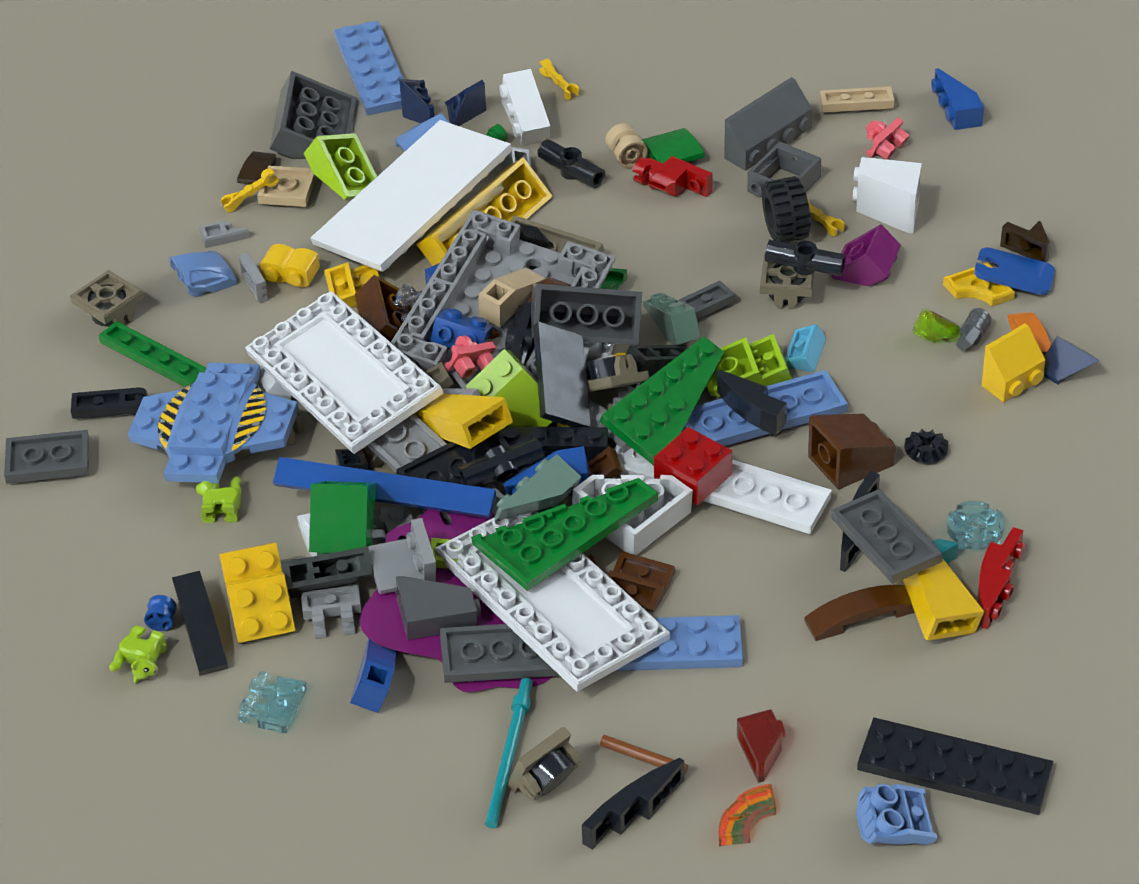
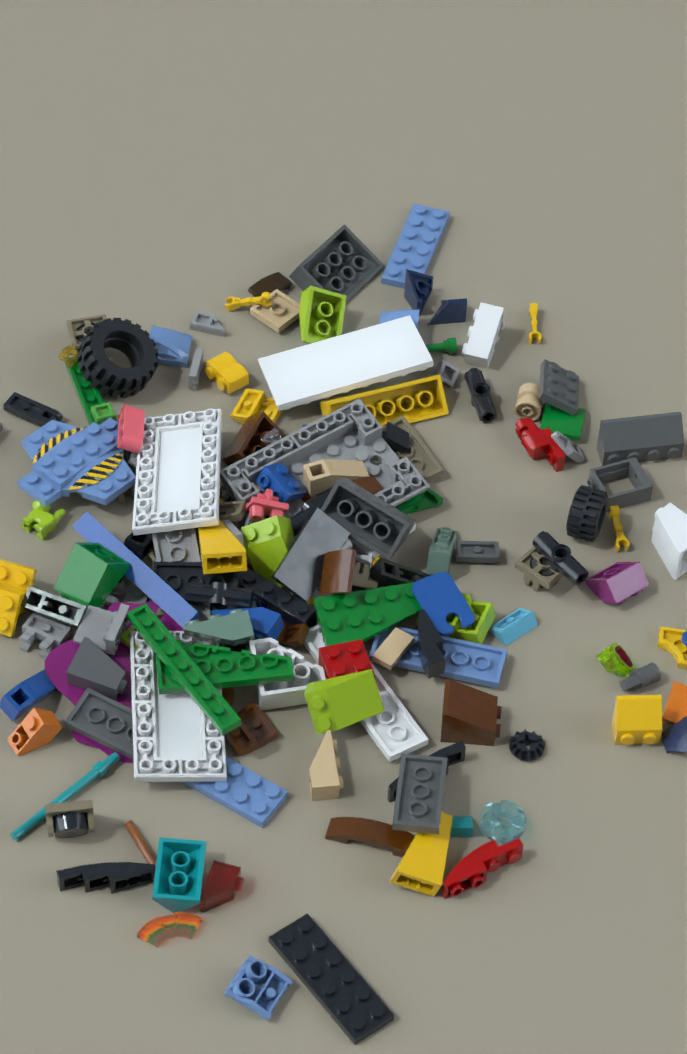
camera: 30 degrees right, 5 degrees up
(106, 320) = (66, 352): none -> clear yellow plate
(167, 300) = (103, 372): none -> black tyre
(194, 363) = (103, 412): none -> bright green tile
(251, 356) = (131, 429): none -> coral beam
(416, 707) = (34, 731): none -> orange slope
(540, 546) = (184, 669): none -> green plate
(608, 376) = (337, 572): none -> reddish brown slope
(644, 117) = (559, 387): none -> dark grey plate
(705, 164) = (569, 447): none -> light grey tile
(714, 751) = (179, 873): none -> teal slope
(717, 423) = (393, 648): none -> tan tile
(722, 494) = (343, 700): none -> lime slope
(728, 352) = (441, 598): none -> blue piece
(761, 578) = (323, 773): none -> tan slope

